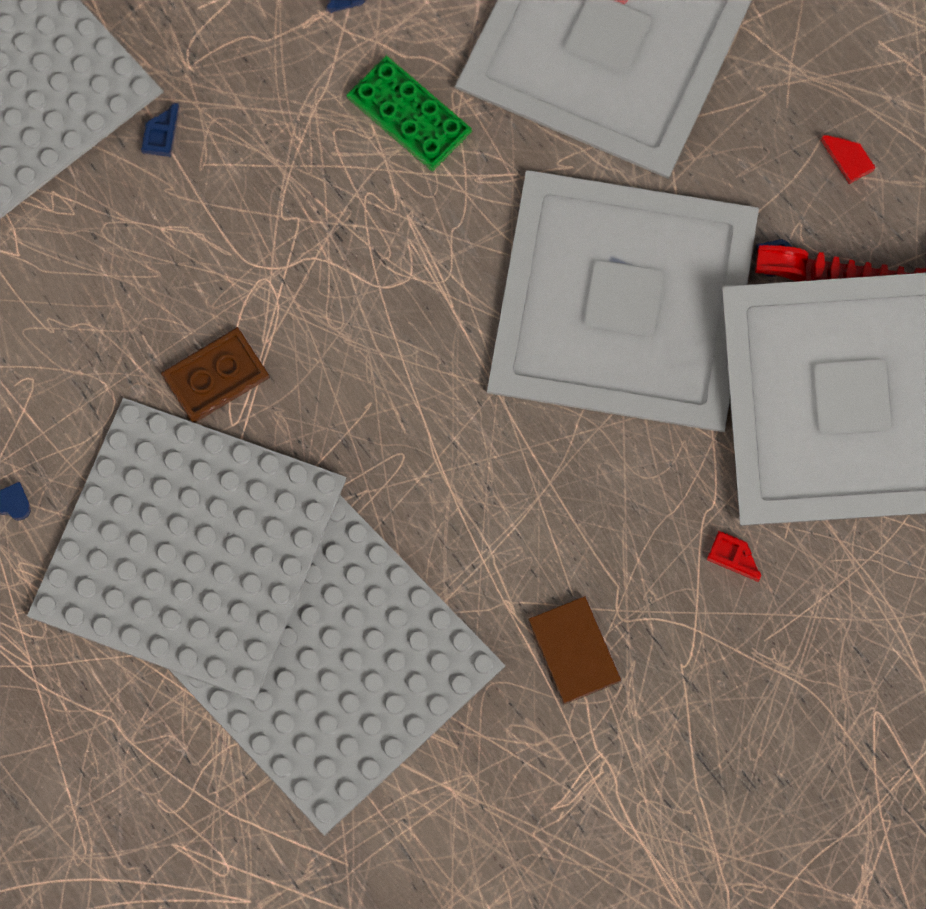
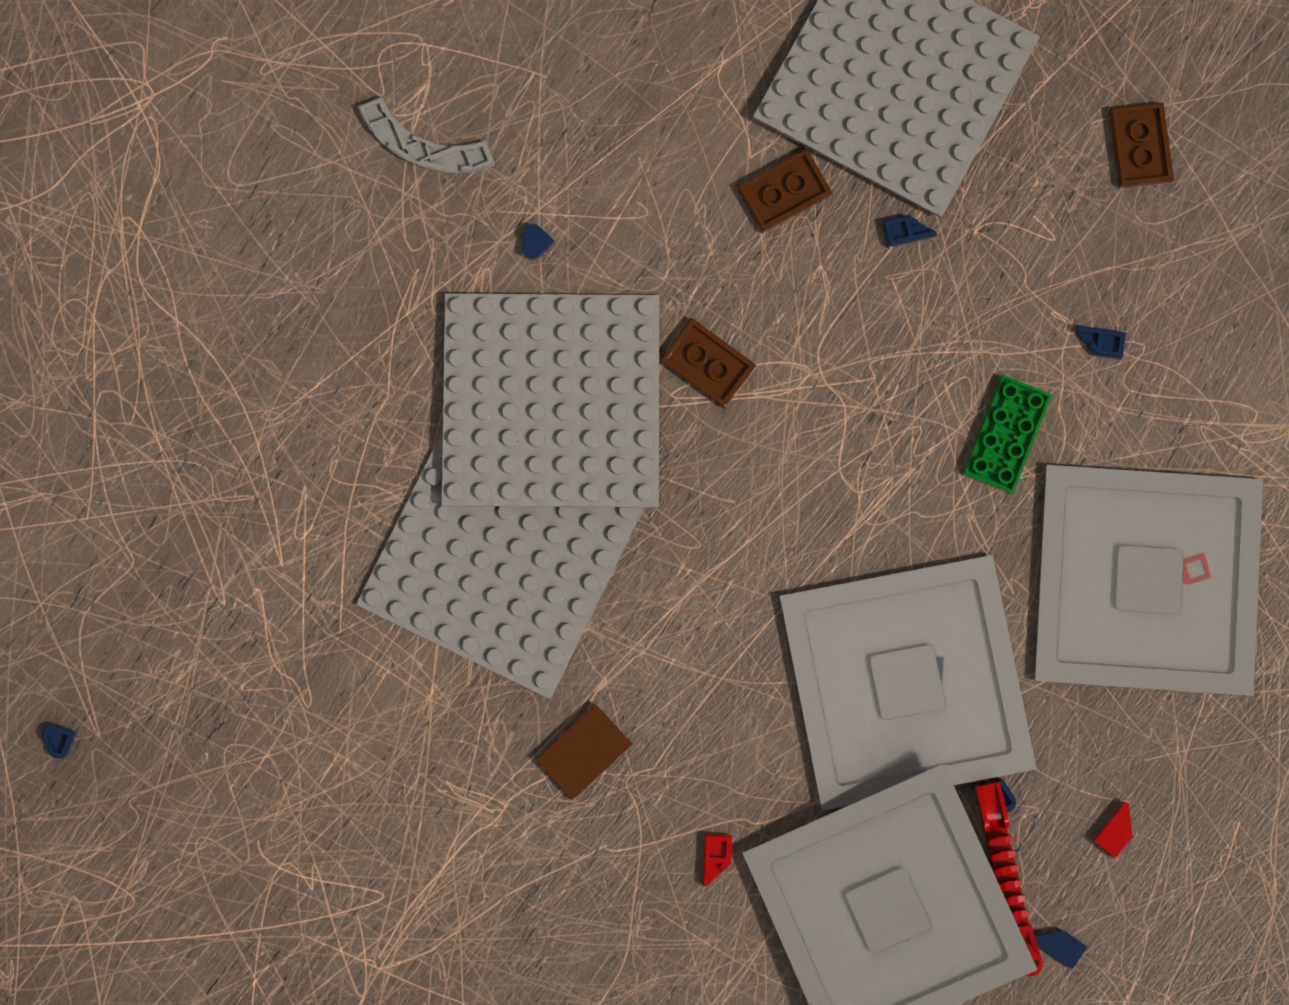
camera: 75 degrees right, 10 degrees up
(68, 234) = (784, 190): none -> reddish brown tile

